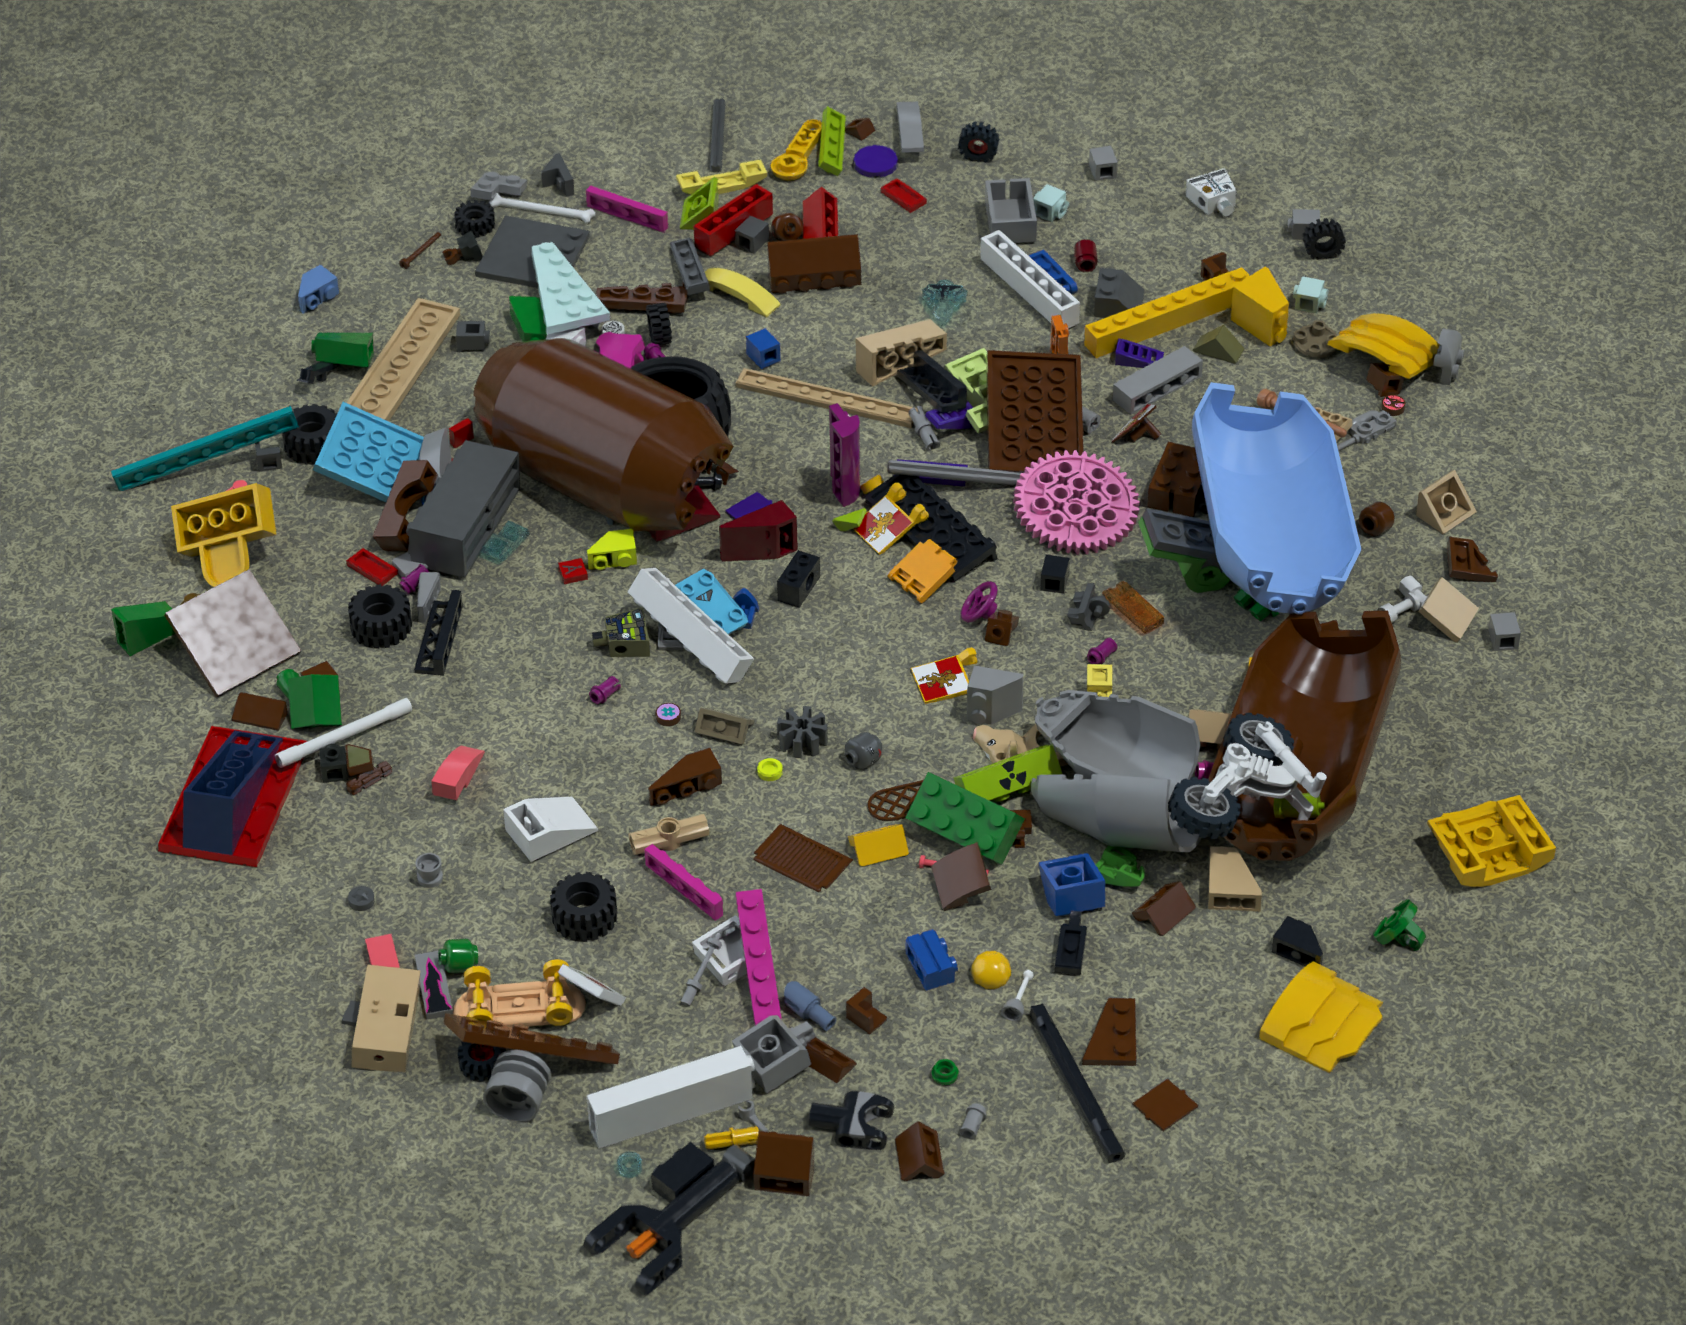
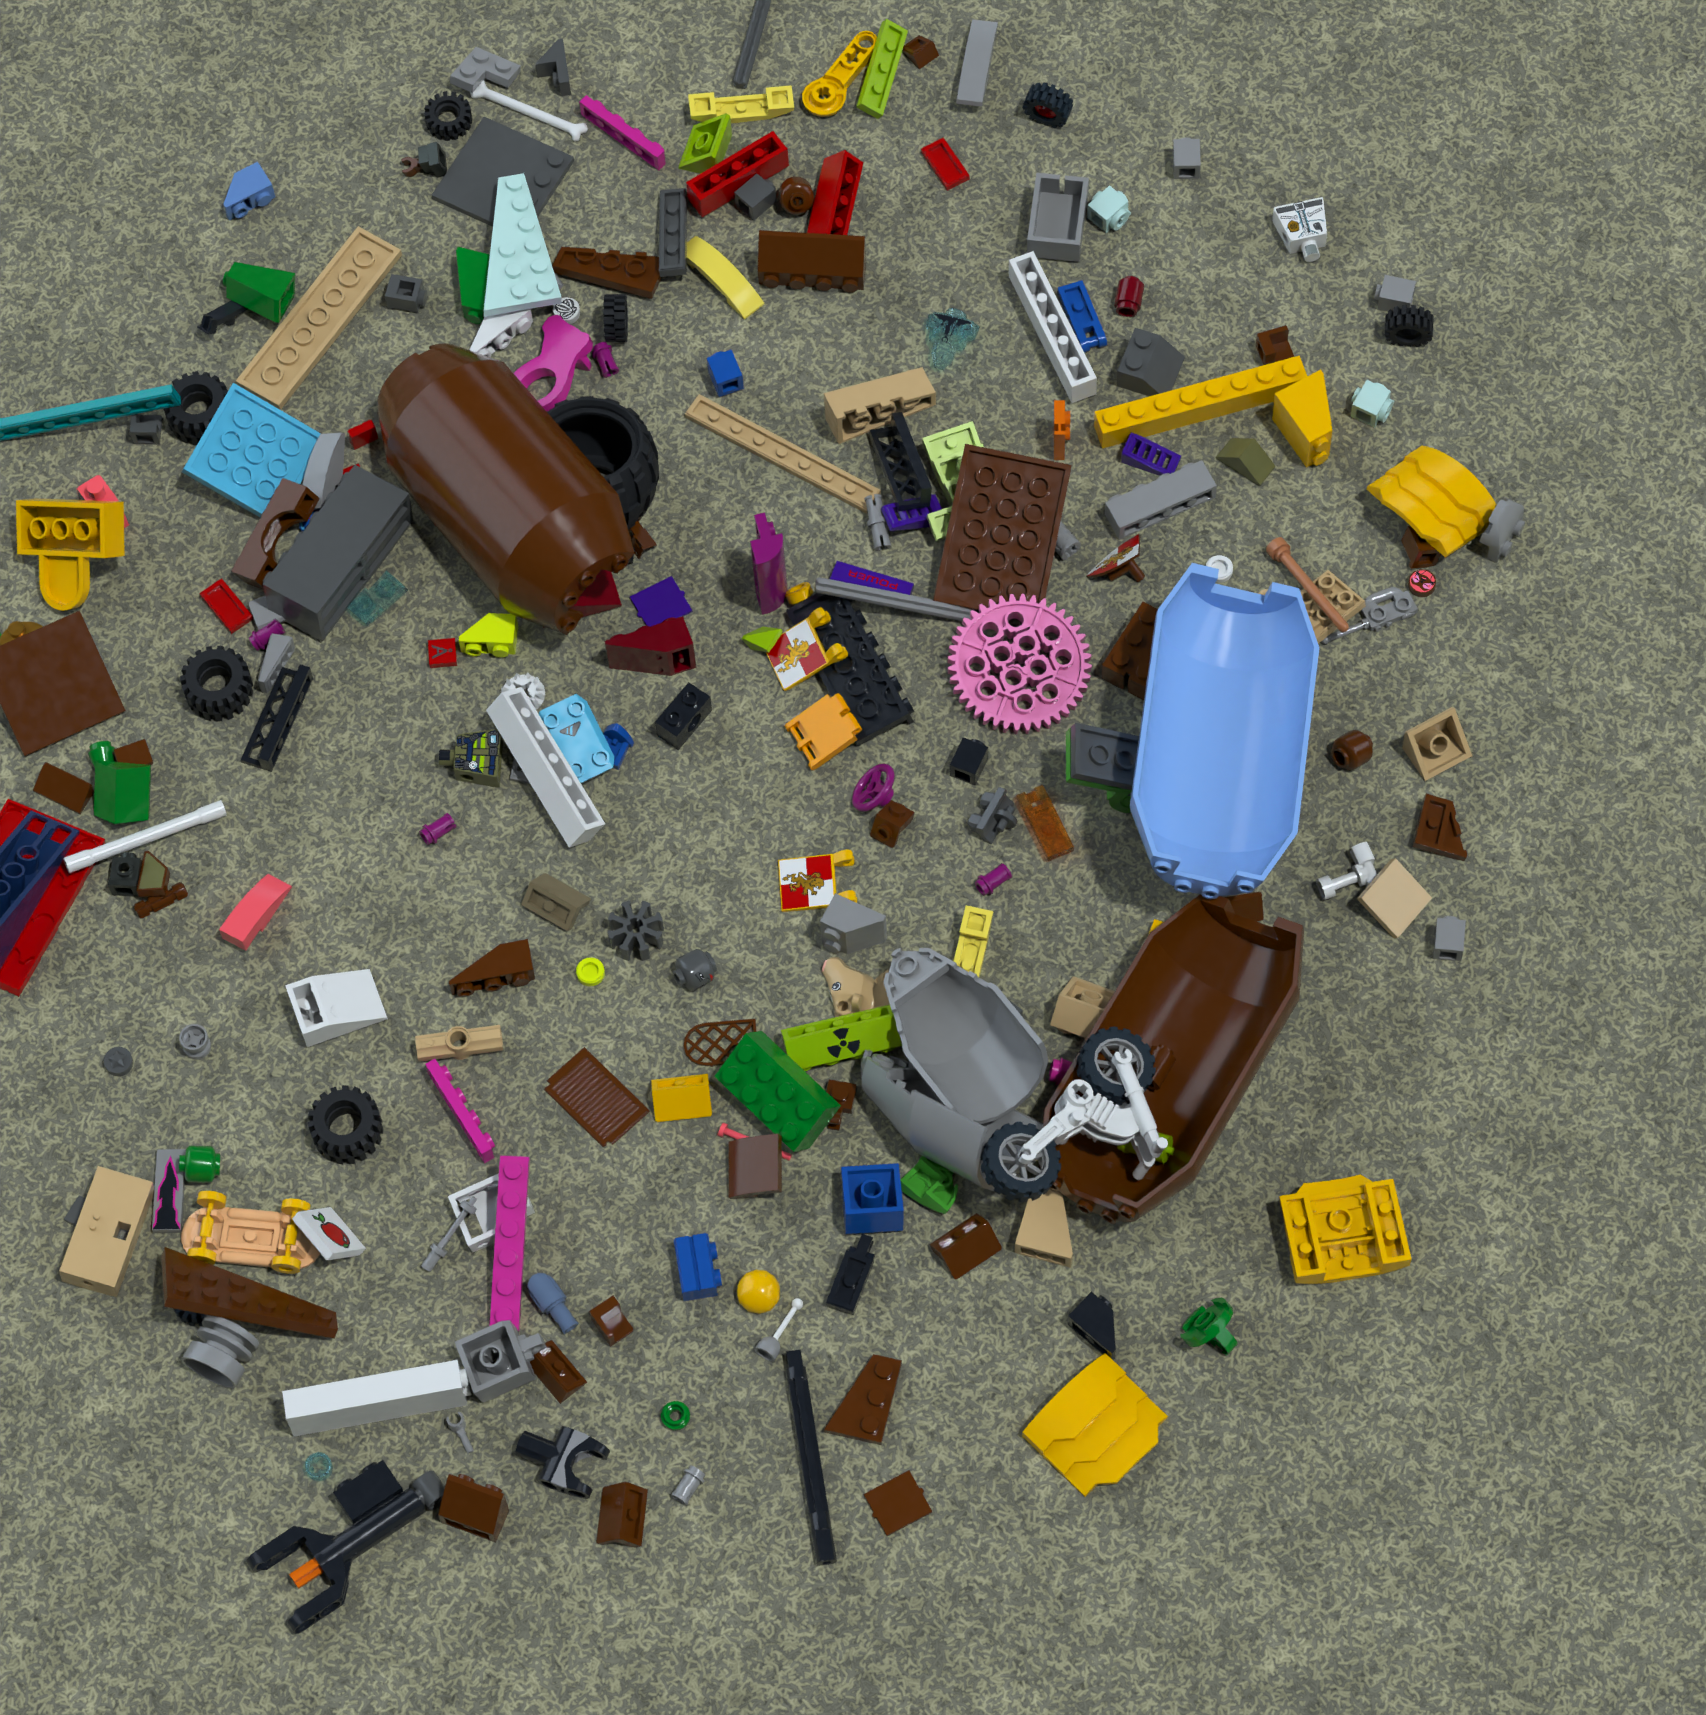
camera: 15 degrees right, 20 degrees up
(382, 951) = (123, 1146): coral slope -> none
(405, 263) = (357, 167): reddish brown piece -> none
(668, 714) = (499, 874): tile -> none
(732, 1137) = (431, 1456): yellow axle -> none
(875, 161) = (926, 105): dark purple tile -> none
(1314, 338) = (1358, 469): dark tan dish -> none

